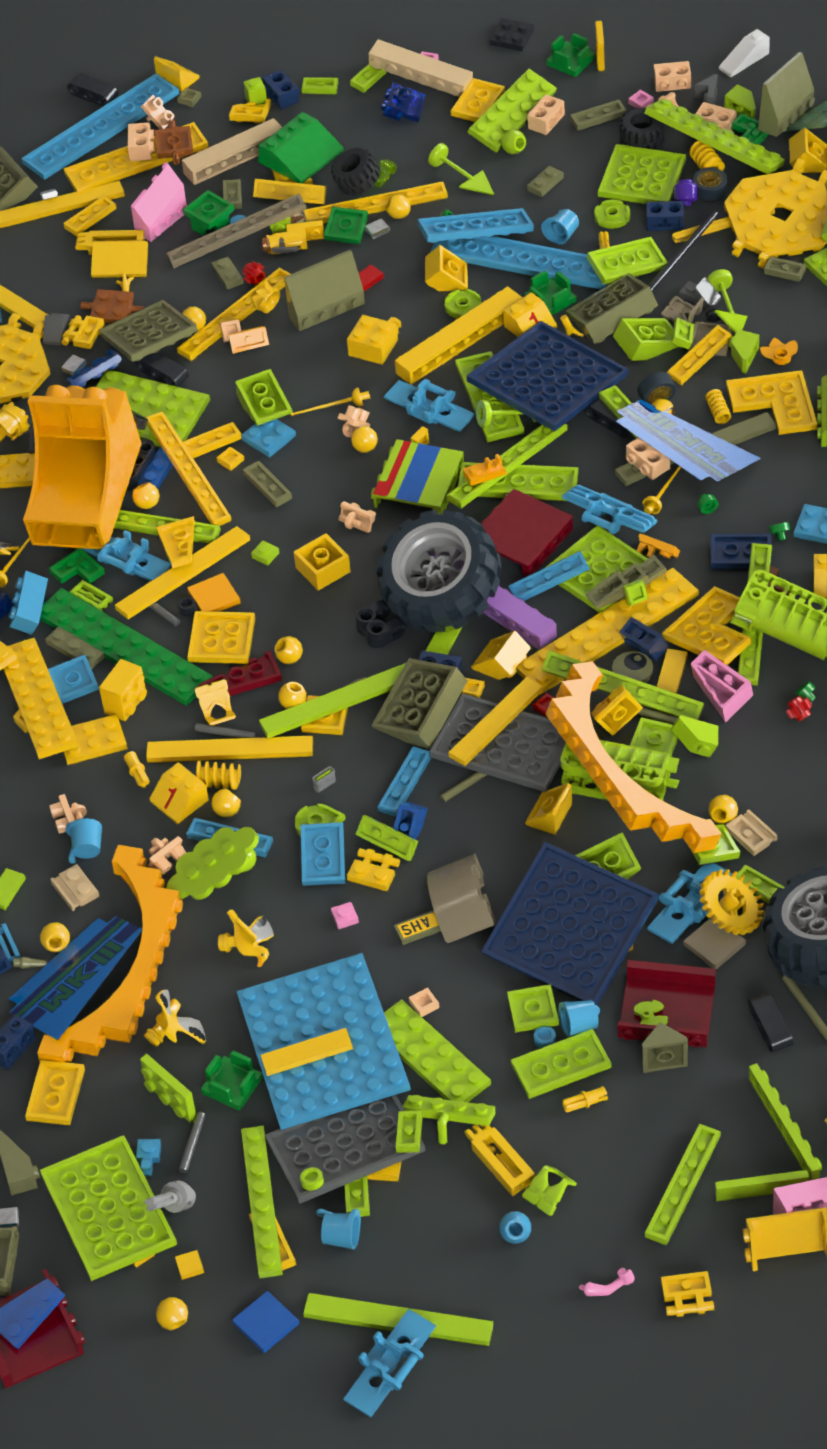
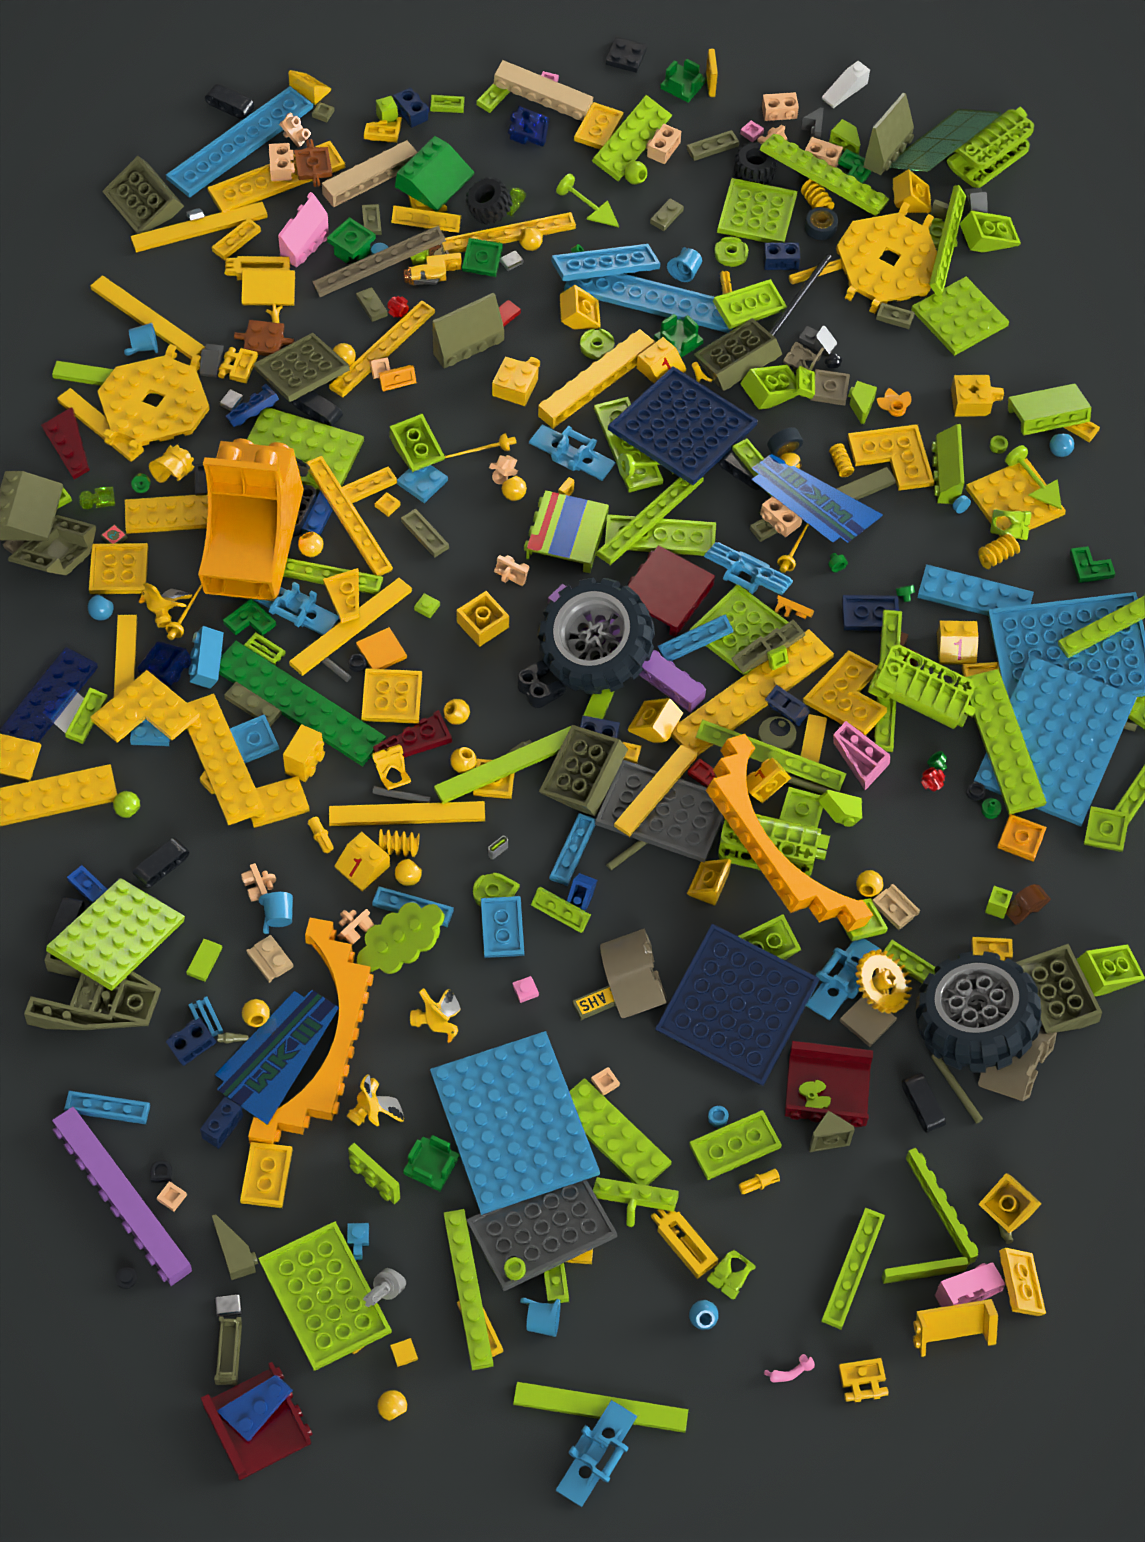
camera: 10 degrees left, 10 degrees up
(192, 1141) = (398, 1225): dark grey bar -> none
(265, 1322) = (478, 1411): blue tile -> none
(266, 299) = (411, 334): yellow piece -> none
(306, 1051) = (502, 1137): yellow tile -> none
(373, 875) = (546, 946): yellow plate -> none
(409, 1131) = (602, 1221): lime plate -> none
(484, 471) = (630, 527): light orange plate -> none
(532, 1008) = (706, 1087): lime plate -> none
(578, 1016) = (749, 1098): dark azure hat -> none
(685, 191) = (799, 232): dark purple head -> none
(699, 355) = (821, 405): yellow tile -> none
(721, 281) = (852, 370): lime piece -> none

